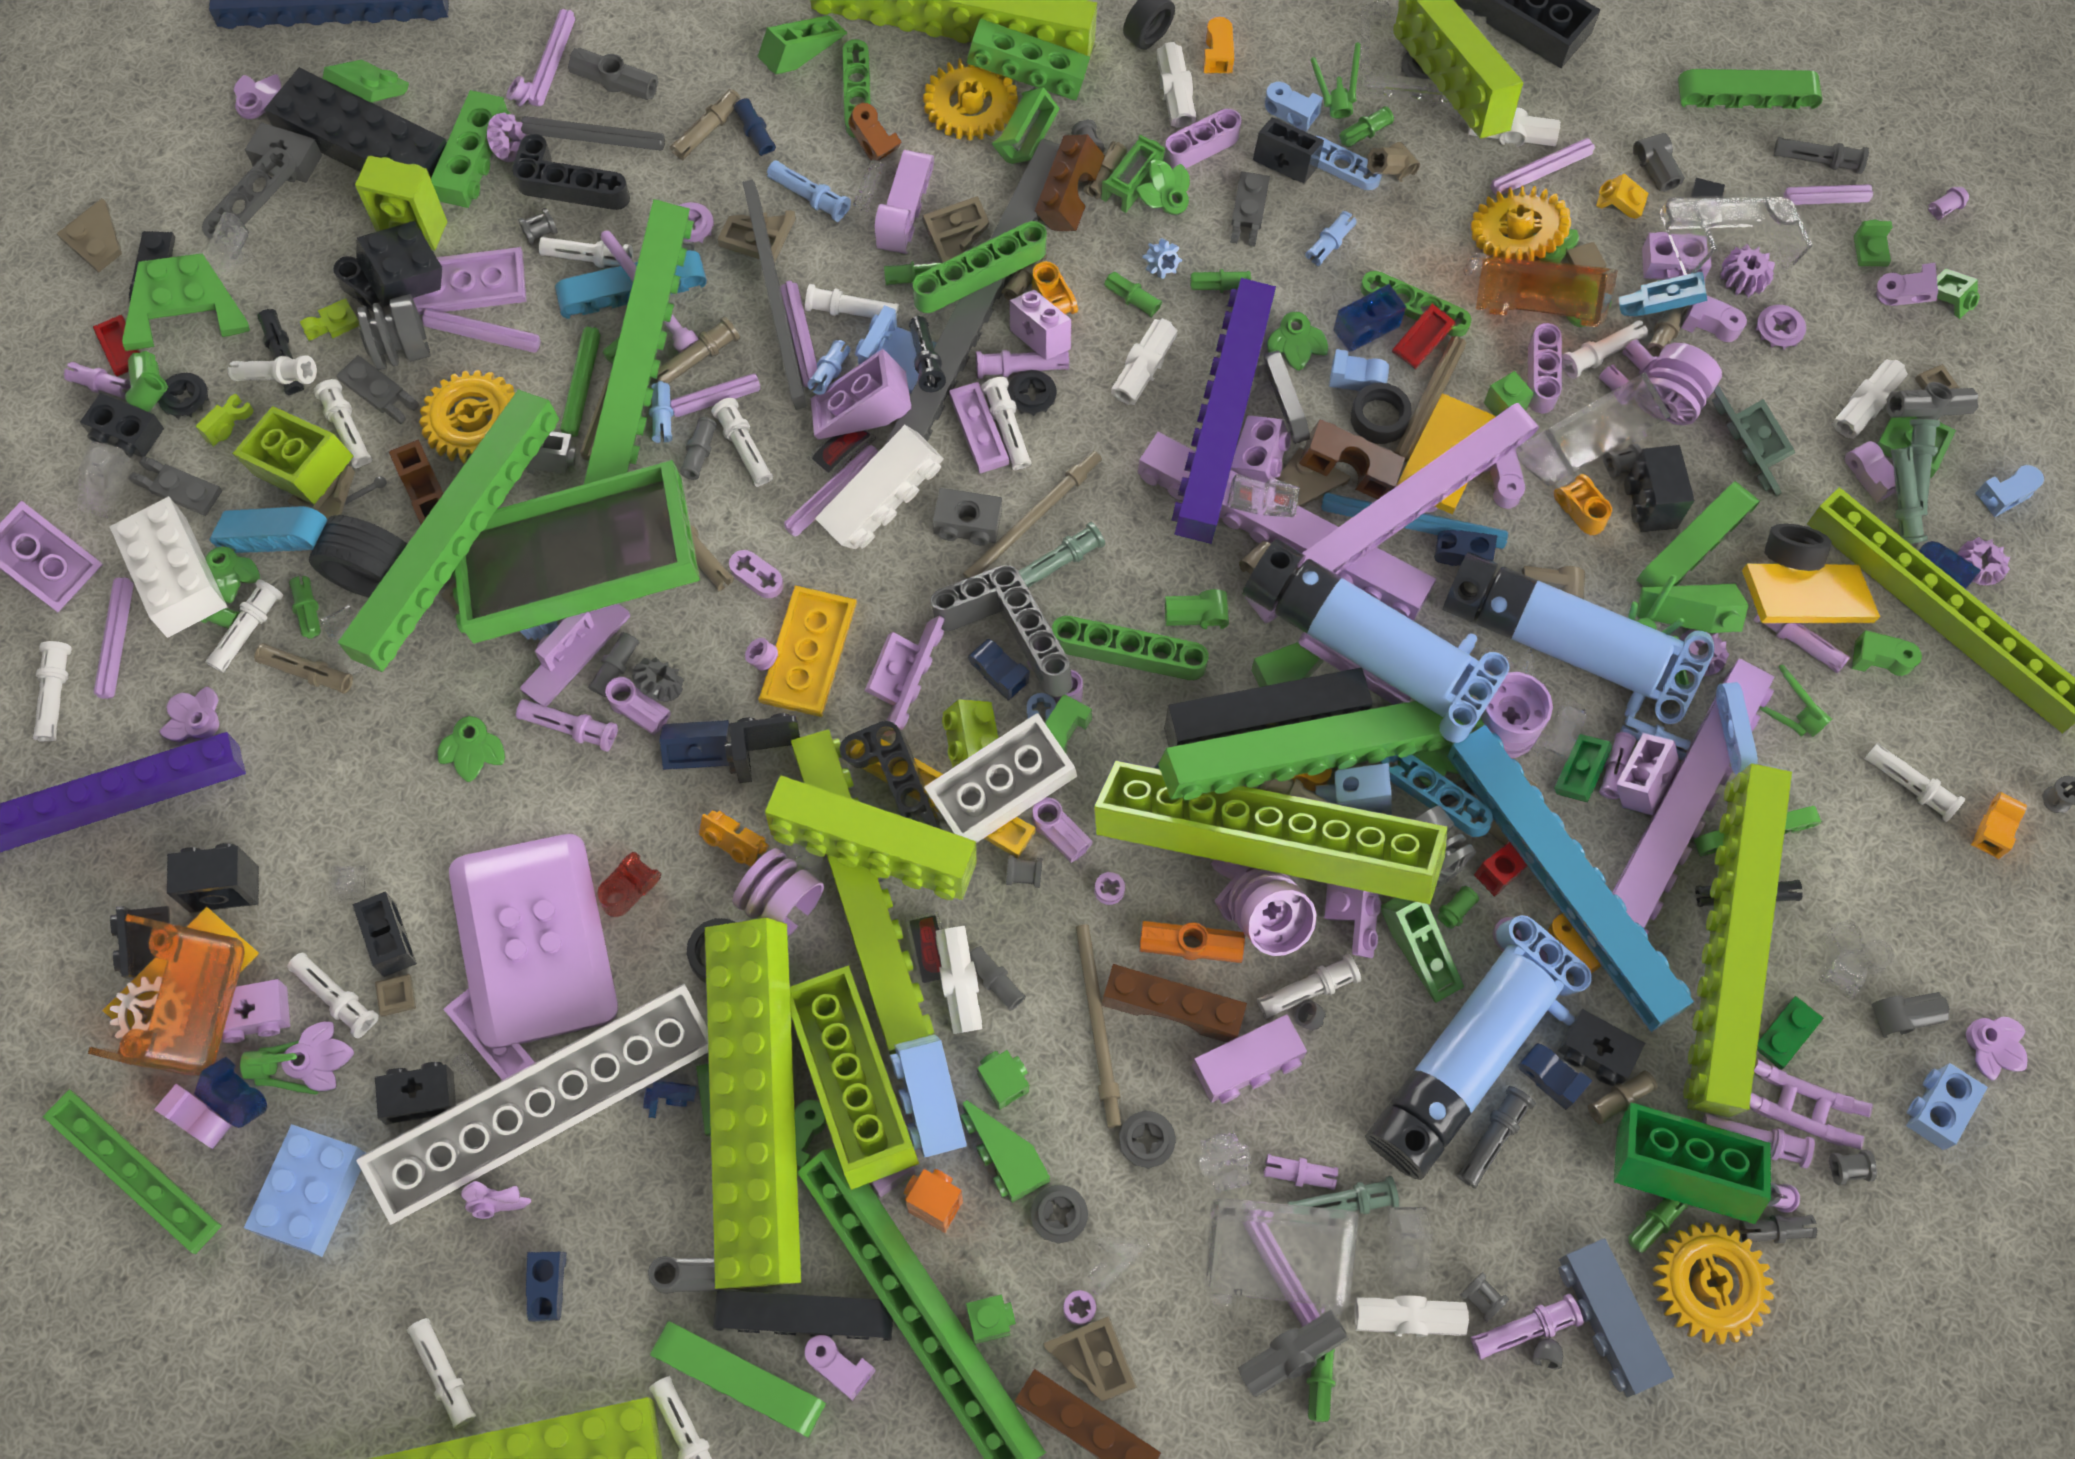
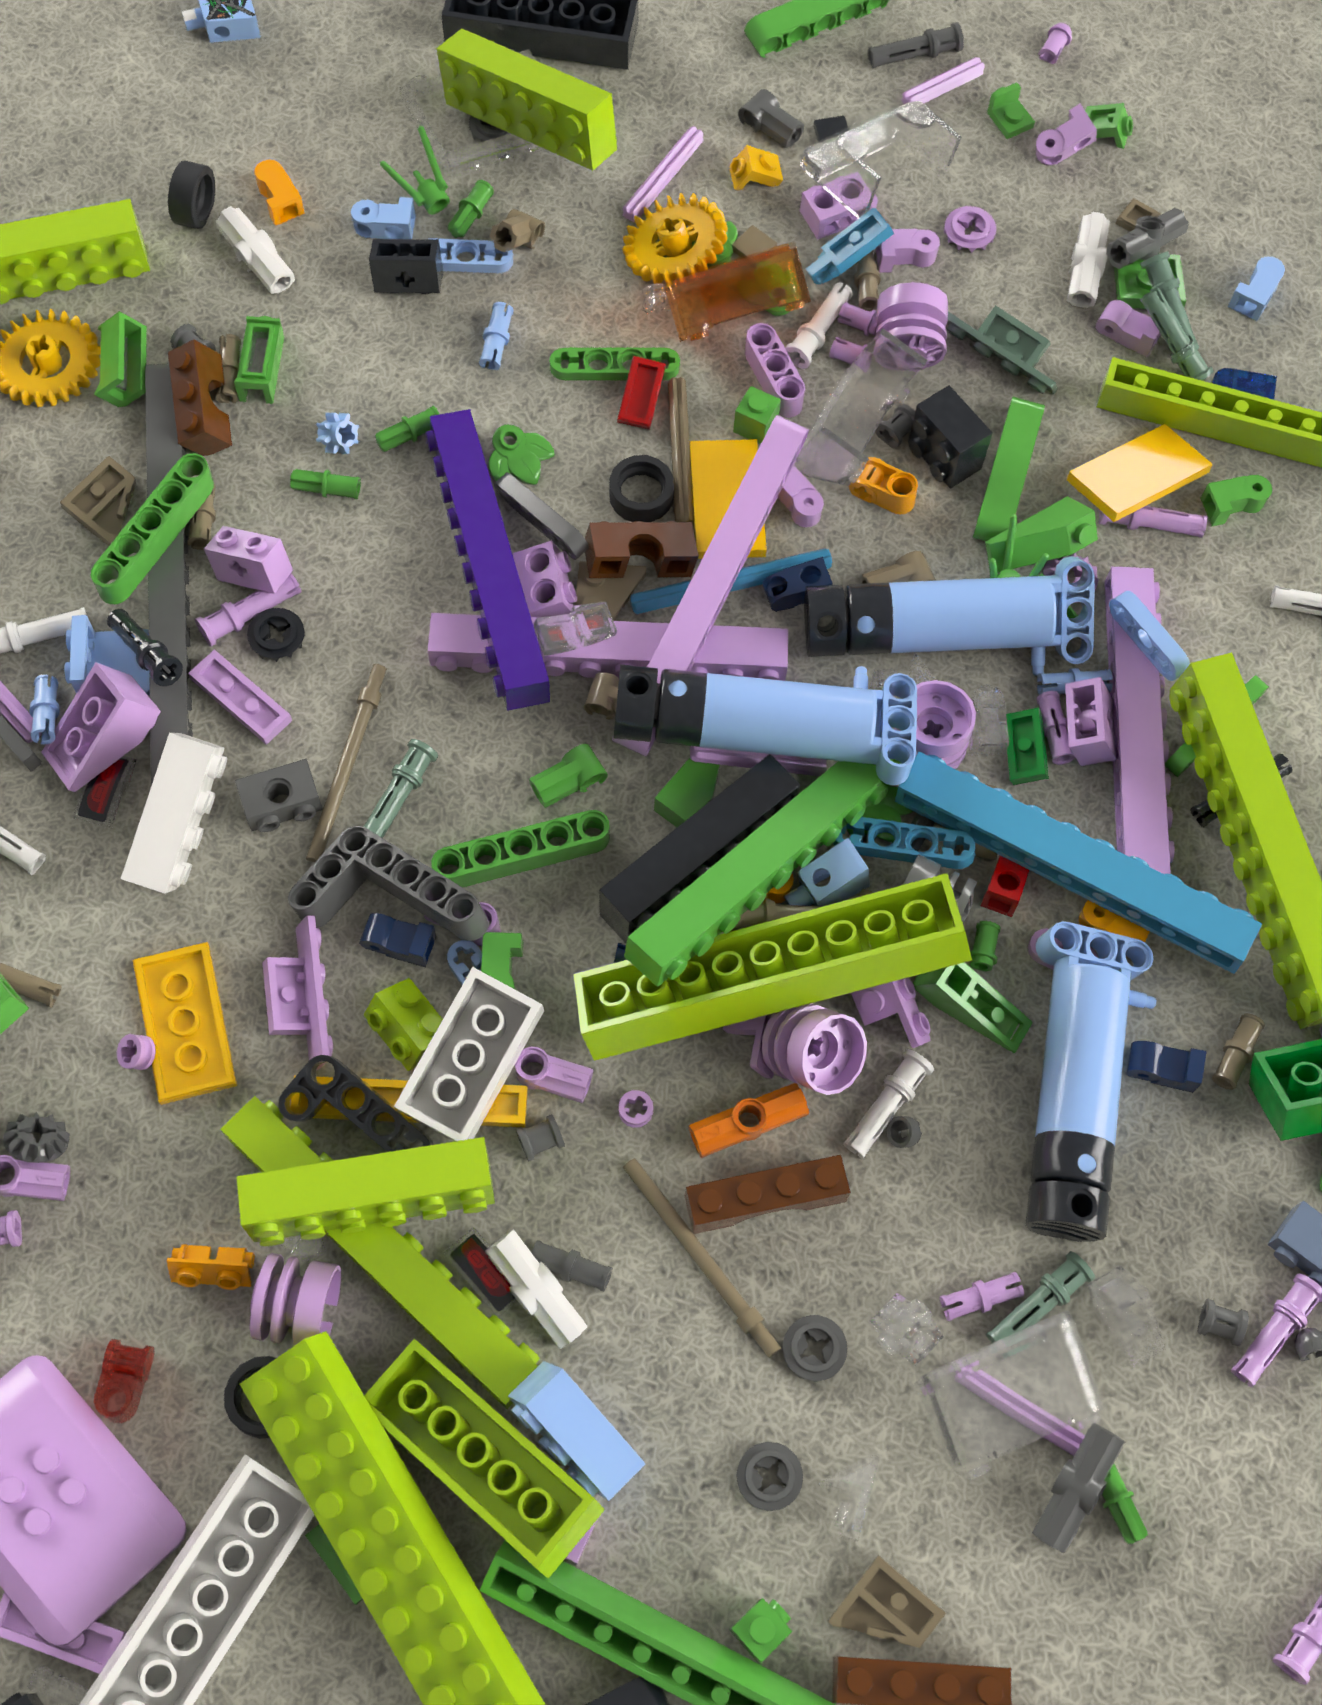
camera: 30 degrees left, 0 degrees up
(675, 1093) = (299, 1579): clear blue bracket -> none
(694, 744) = (115, 1187): dark blue panel -> none
(754, 734) = (177, 1143): black bracket -> none
(759, 568) = (84, 960): lavender beam -> none
(808, 1123) = (460, 1525): bright green leg -> none
(810, 510) = (118, 839): lavender axle -> none
(896, 218) = (33, 500): lavender beam -> none
(905, 273) = (75, 570): bright green axle -> none
(933, 1198) = (637, 1536): orange brick -> none
(1003, 411) = (257, 667): white pin -> none
(1003, 1077) = (636, 1365): bright green brick -> none
(1015, 1159) = (694, 1444): bright green slope -> none
(1028, 59) = (85, 290): bright green brick -> none
(1055, 291) = (245, 515): light orange piece -> none
(1084, 1297) = (844, 1576): lavender bush -> none
(1144, 361) = (375, 547): white piece -> none
(1163, 185) = (298, 356): bright green plate -> none
(1203, 138) = (312, 293): lavender beam -> none
(1249, 205) = (396, 340): dark grey hinge -> none
(1250, 1060) = (872, 1210): lavender brick -> none
(1356, 372) = (595, 458): light blue leg -> none
(1369, 318) = (579, 398): clear blue brick -> none
(1411, 1316) = (1166, 1382): white piece -> none
(1503, 1124) = (1145, 1139): dark grey pin -> none
(1528, 130) = (631, 143): white piece -> none
(1619, 1048) = (1210, 1004): black brick -> none
(1747, 270) = (911, 188): lavender gear -> none
(1797, 547) = (1104, 433): black tyre -> none
(1811, 718) = (1204, 590): bright green plant -> none
(1998, 562) = (1286, 370): lavender gear -> none

